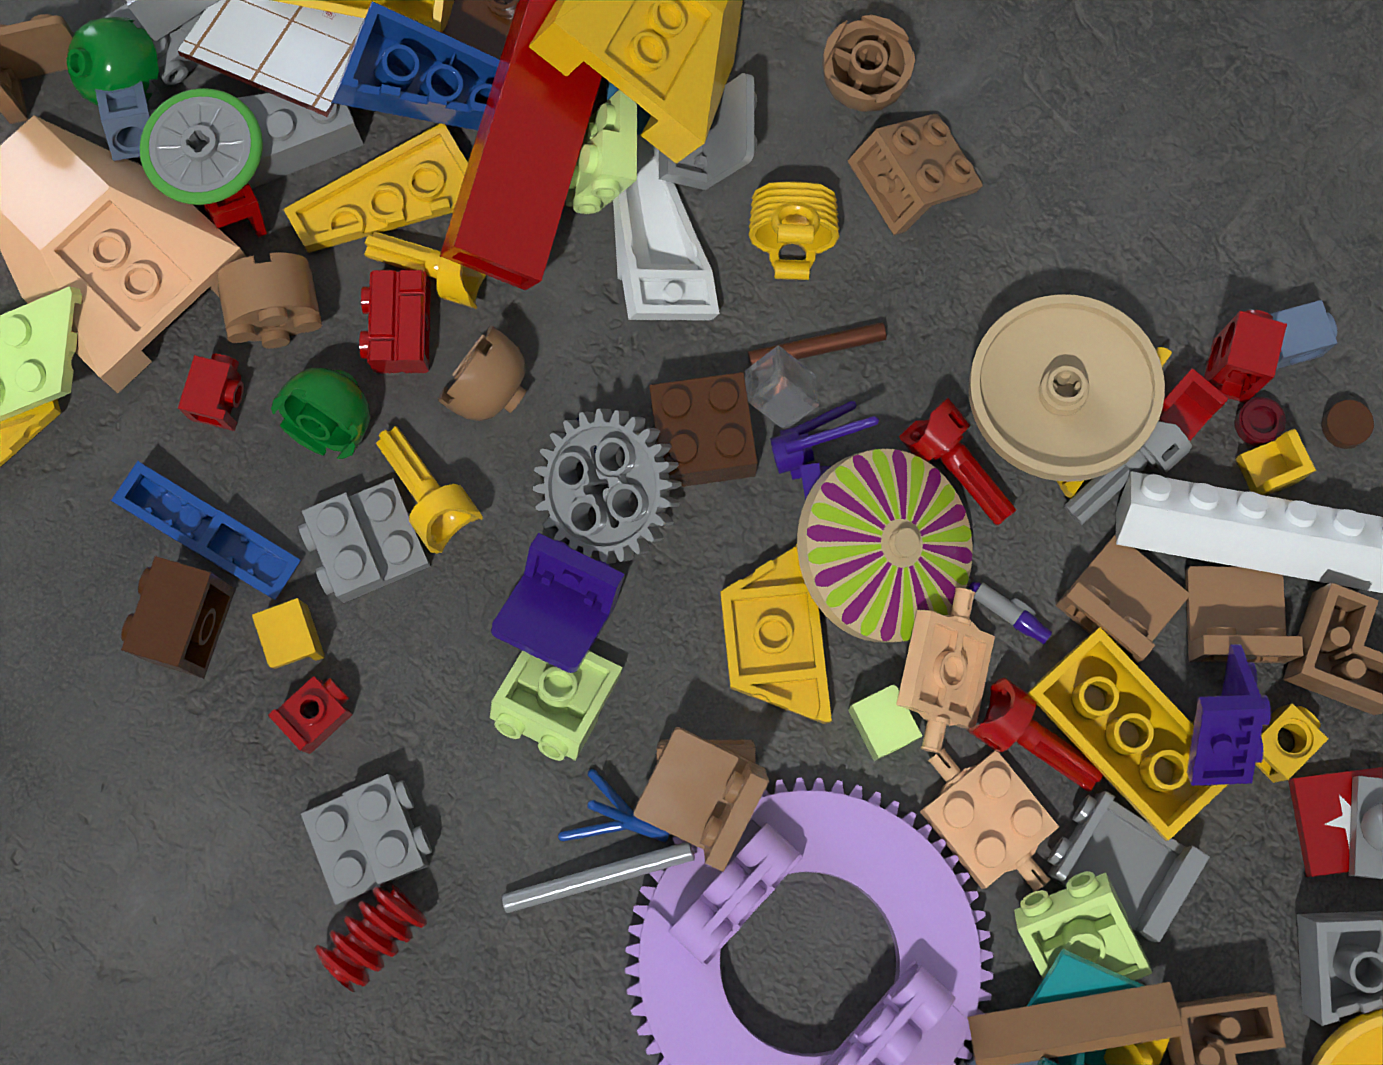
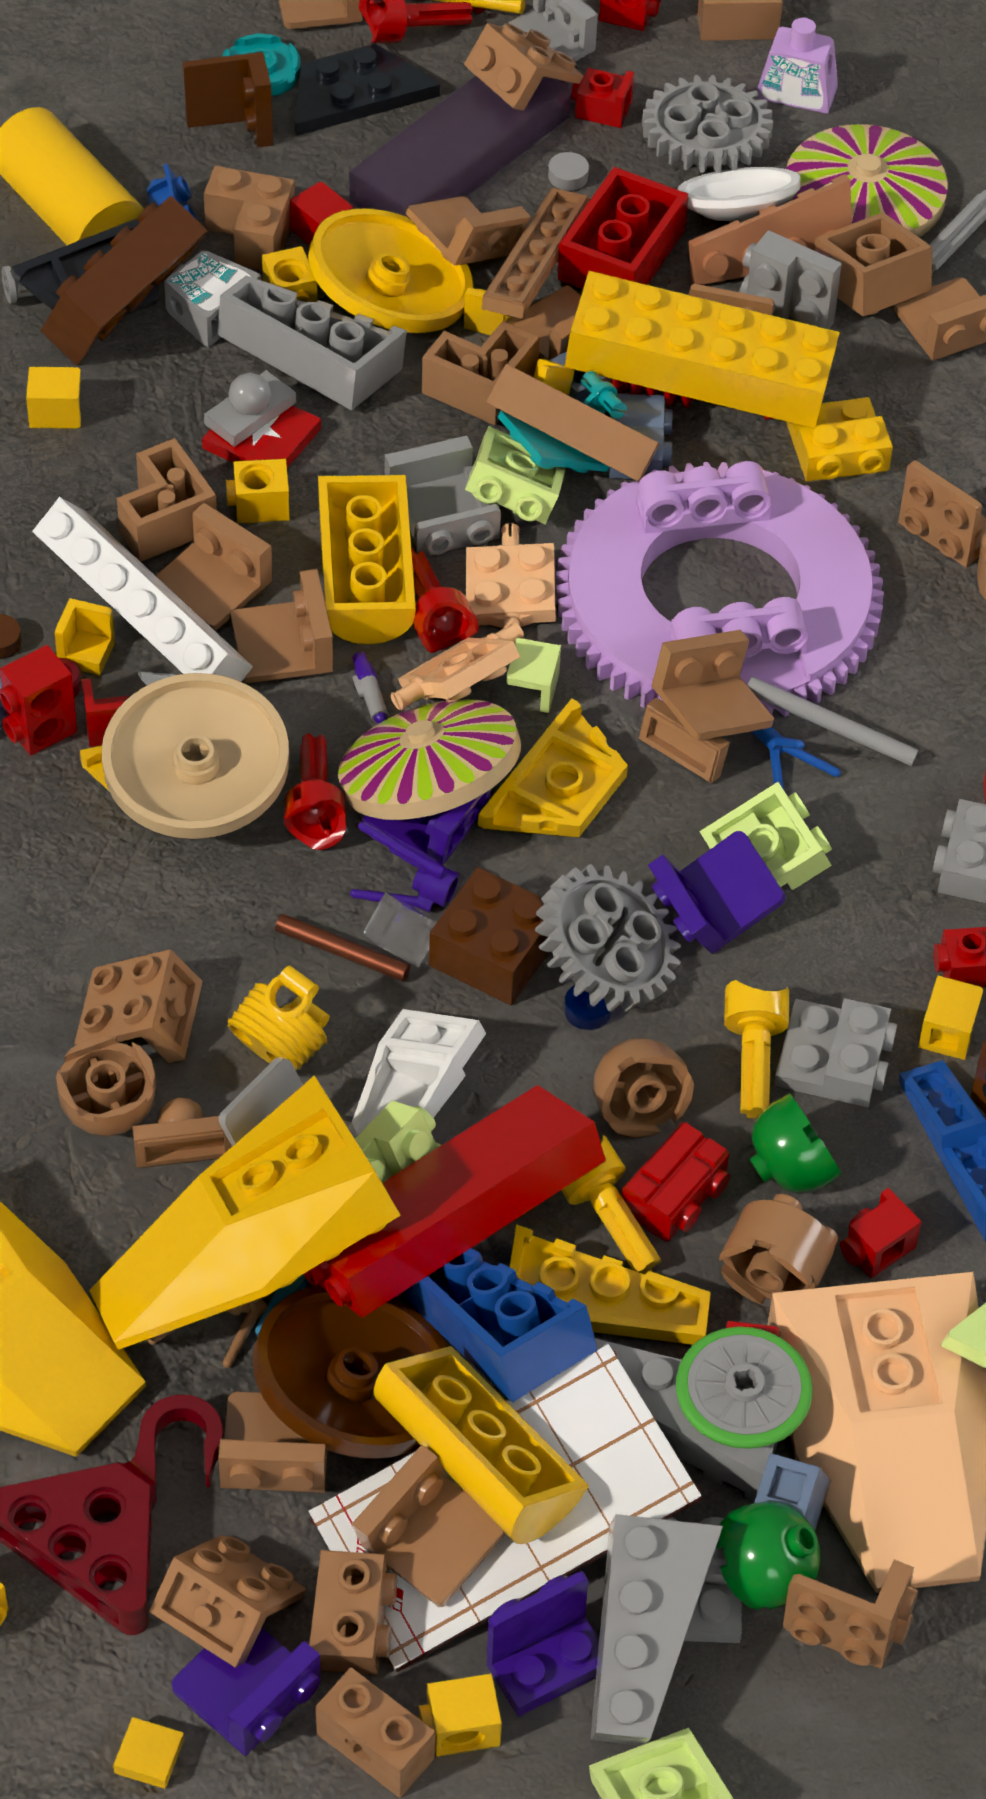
camera: 145 degrees left, 25 degrees down
(791, 88) = (179, 1136): none -> medium nougat tile
(1229, 727) = (287, 488): dark purple bracket -> none

